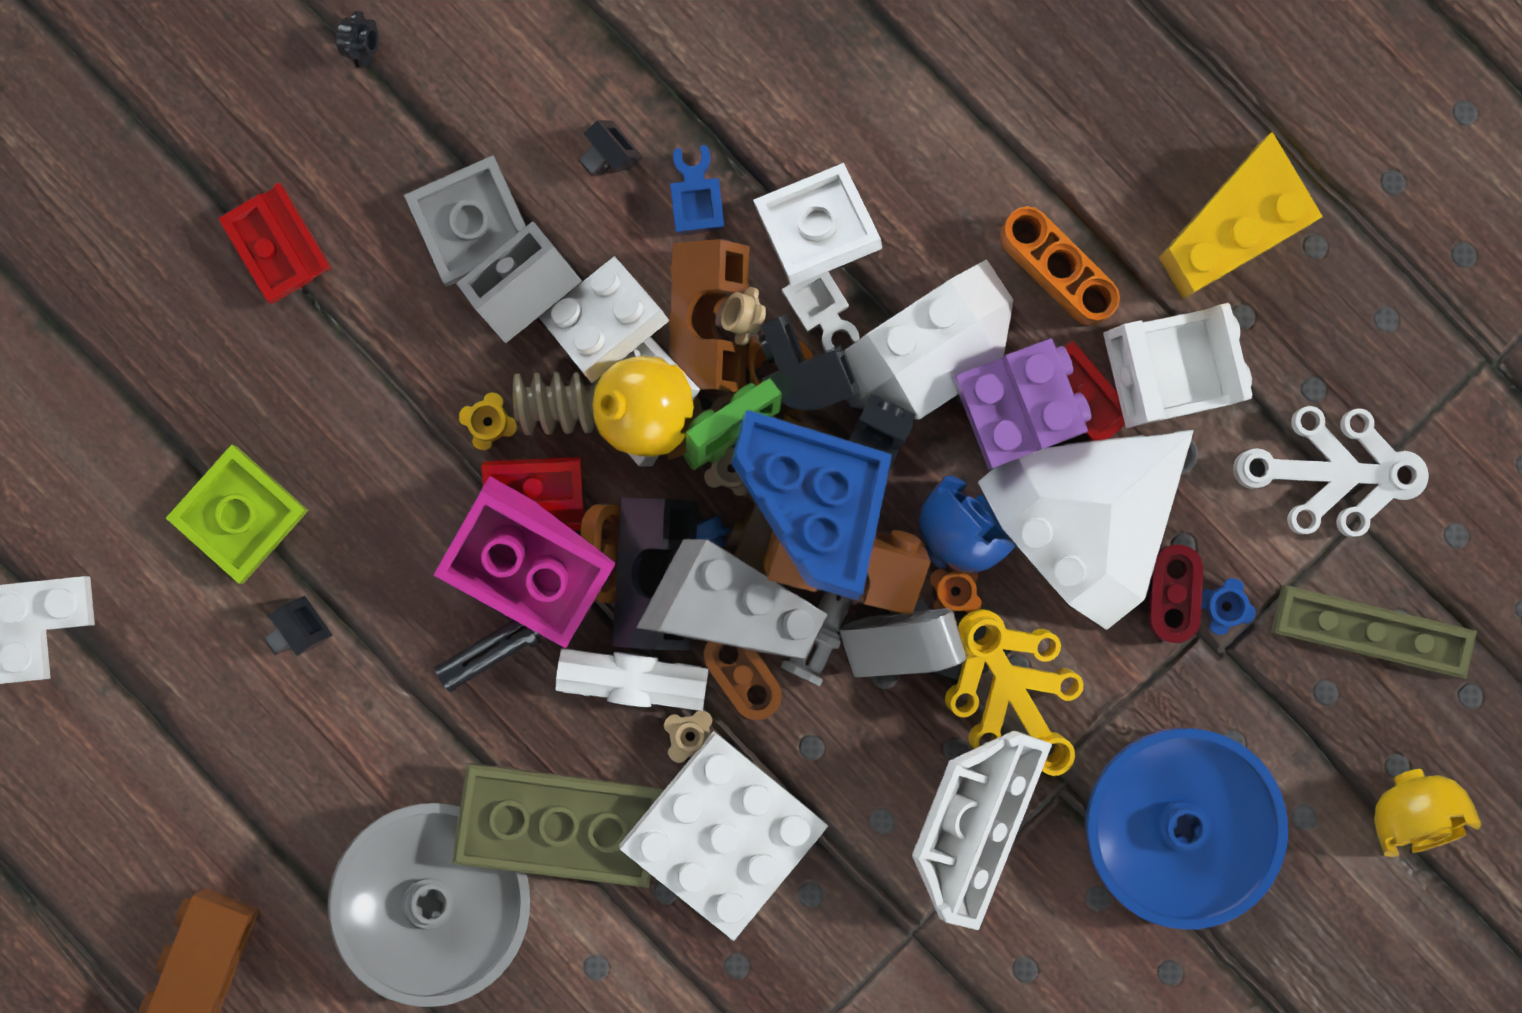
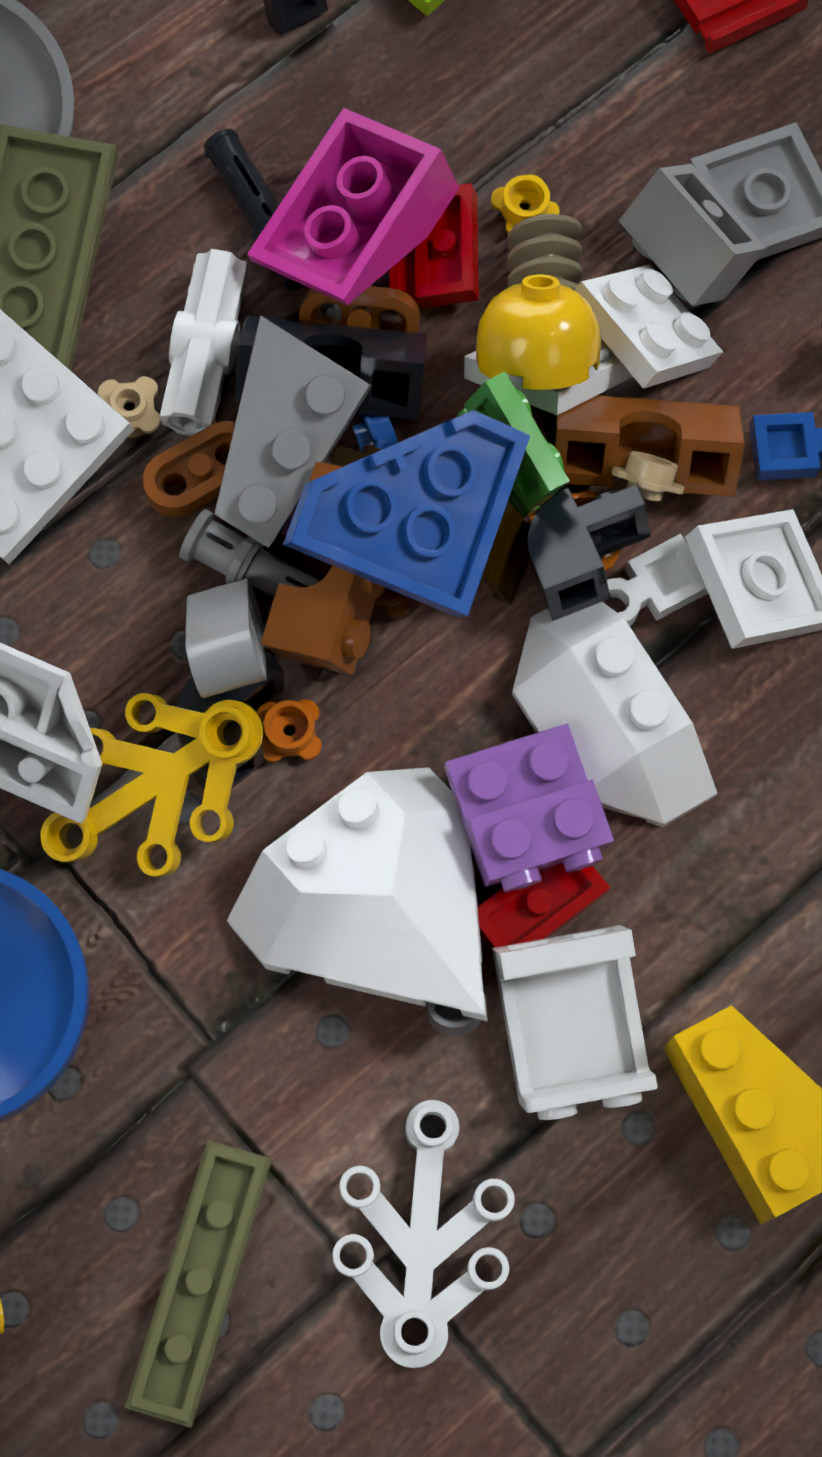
camera: 85 degrees right, 15 degrees down
(882, 426) = (492, 639): black brick -> none
(961, 529) = (371, 728): blue cylinder -> none
(1052, 242) = (724, 852): orange beam -> none
(1179, 594) = (270, 1003): dark red plate -> none
(1240, 609) = (252, 1060): blue plate -> none

